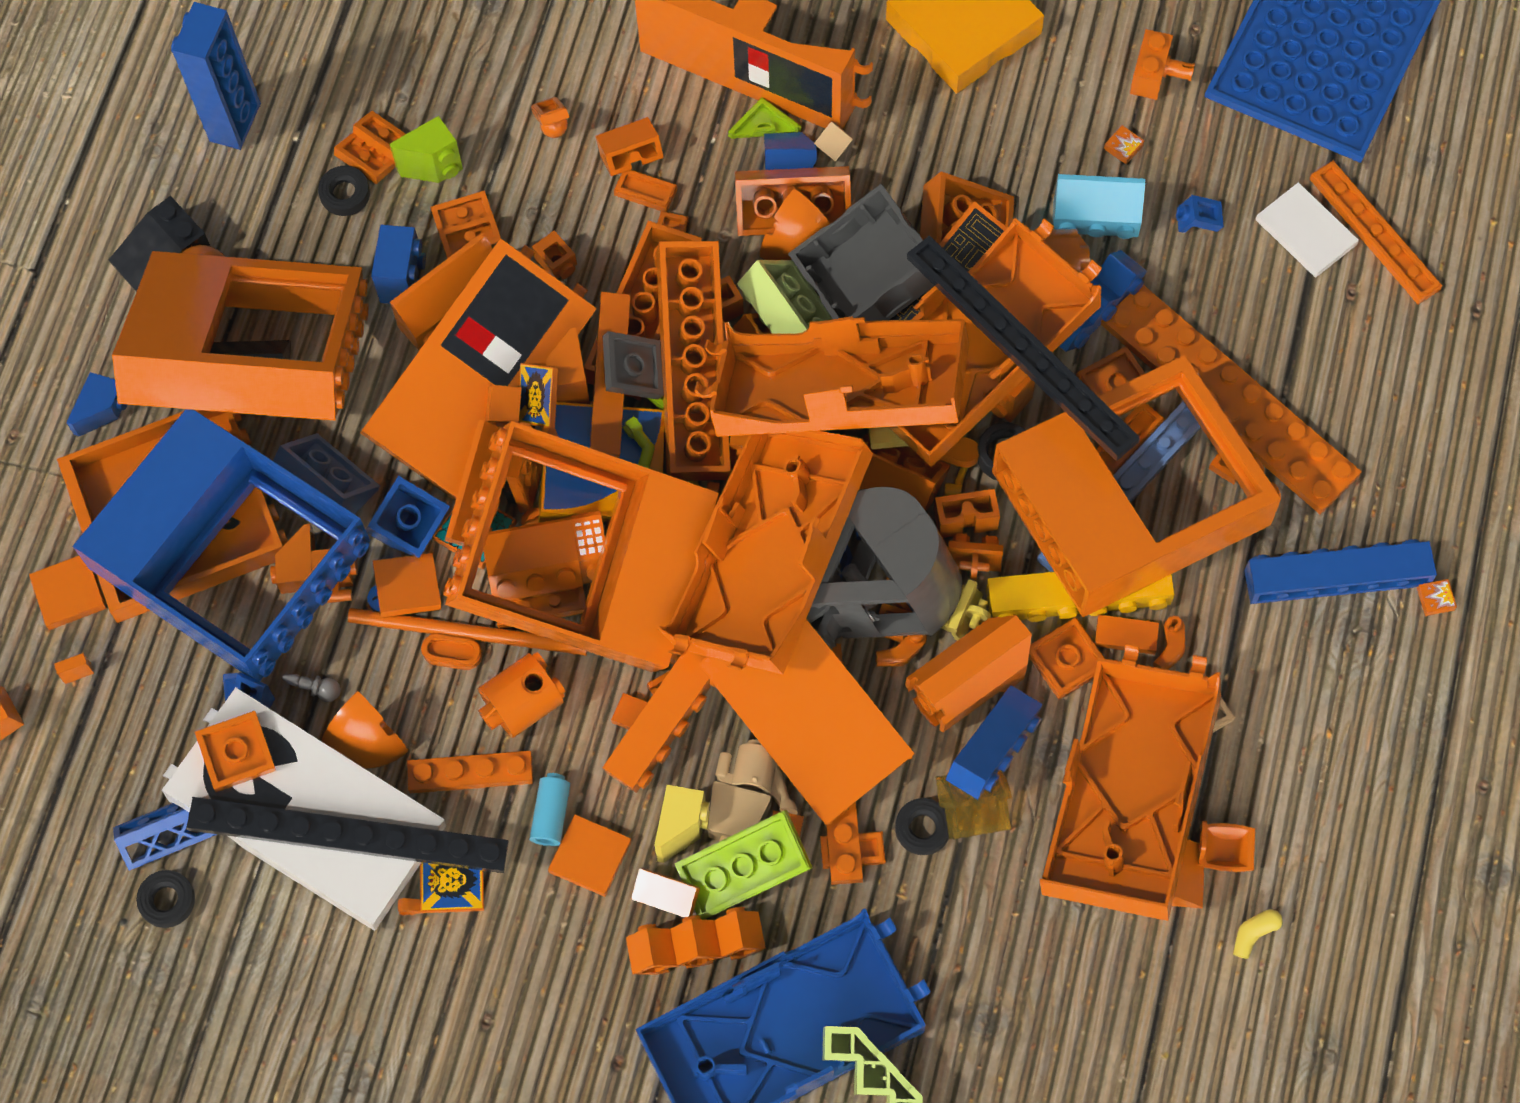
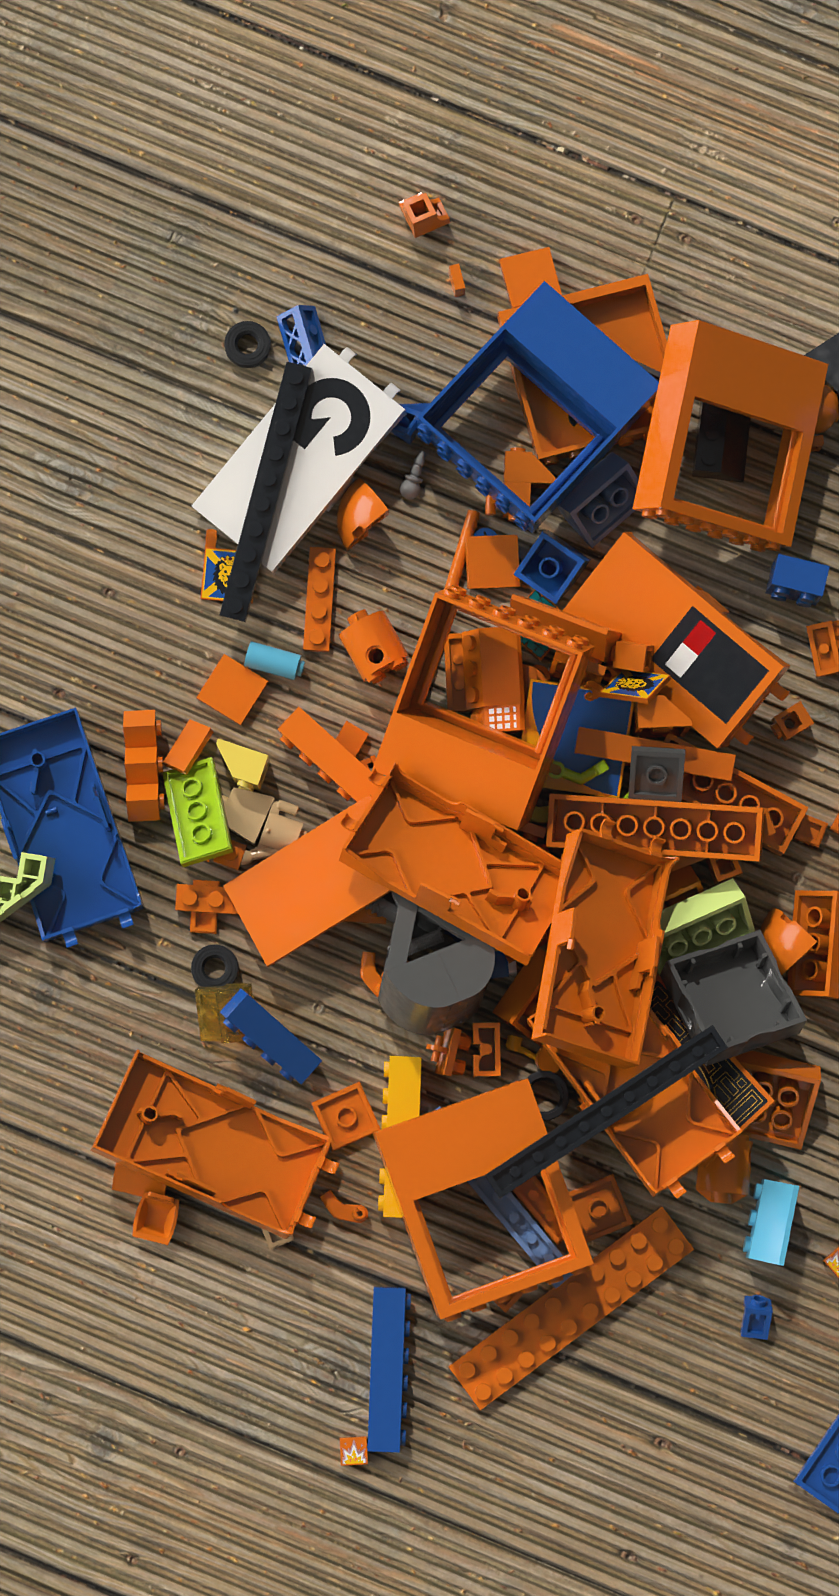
camera: 90 degrees right, 15 degrees up
(95, 405) = (700, 306): blue slope -> none
(235, 751) = (348, 405): orange tile -> none
(429, 299) = (761, 618): orange slope -> none
(451, 651) = (429, 583): orange tile -> none
(968, 612) = (397, 1037): light yellow hips -> none
(971, 671) = (338, 1028): orange brick -> none
(1117, 279) = (691, 1217): blue brick -> none
(1117, 631) = (359, 1171): orange tile -> none
(1253, 929) = (85, 1228): light yellow arm -> none
(1307, 229) = (729, 1414): white tile -> none
(1375, 232) = (719, 1478): orange tile -> none

